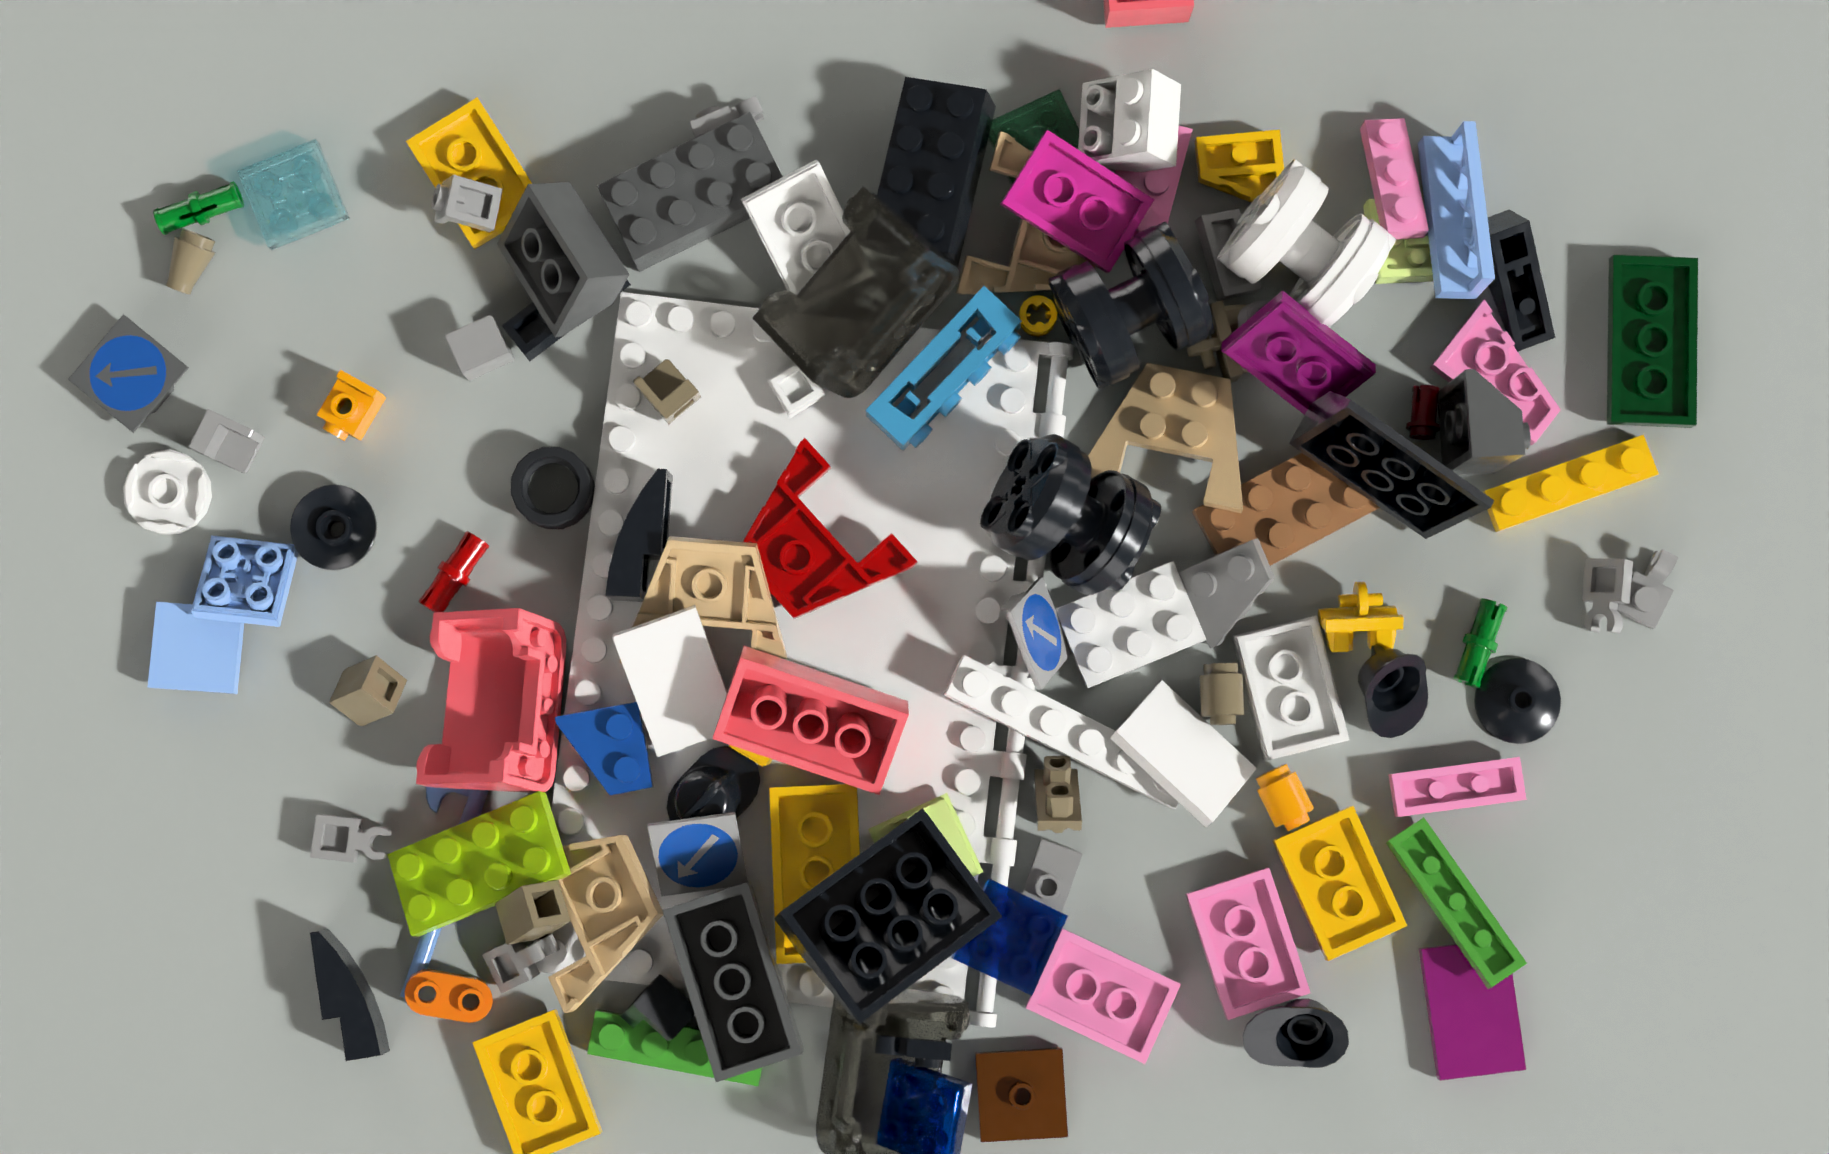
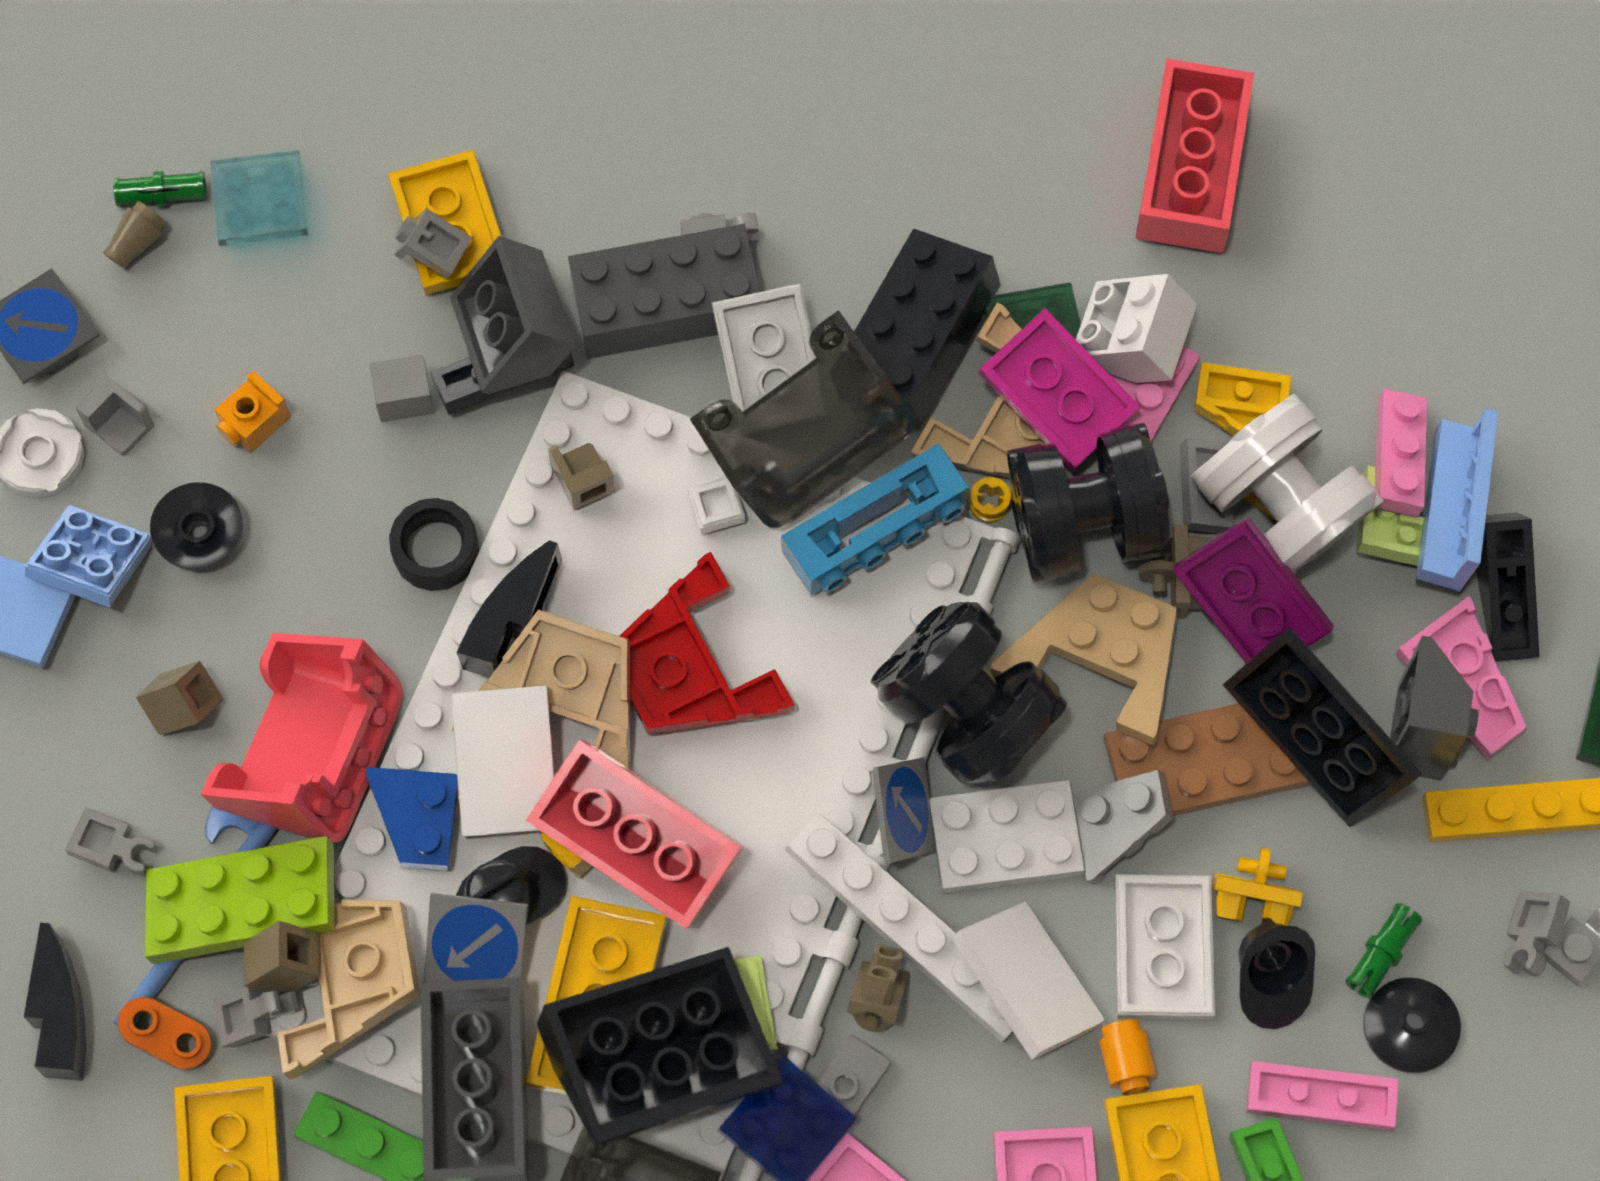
camera: 15 degrees right, 15 degrees down
(454, 573) = (306, 602): red pin -> none
(661, 1008) = (388, 1098): black panel -> none
(1221, 693) = (1086, 929): dark tan brick -> none
(1424, 412) = (1380, 693): dark red pin -> none

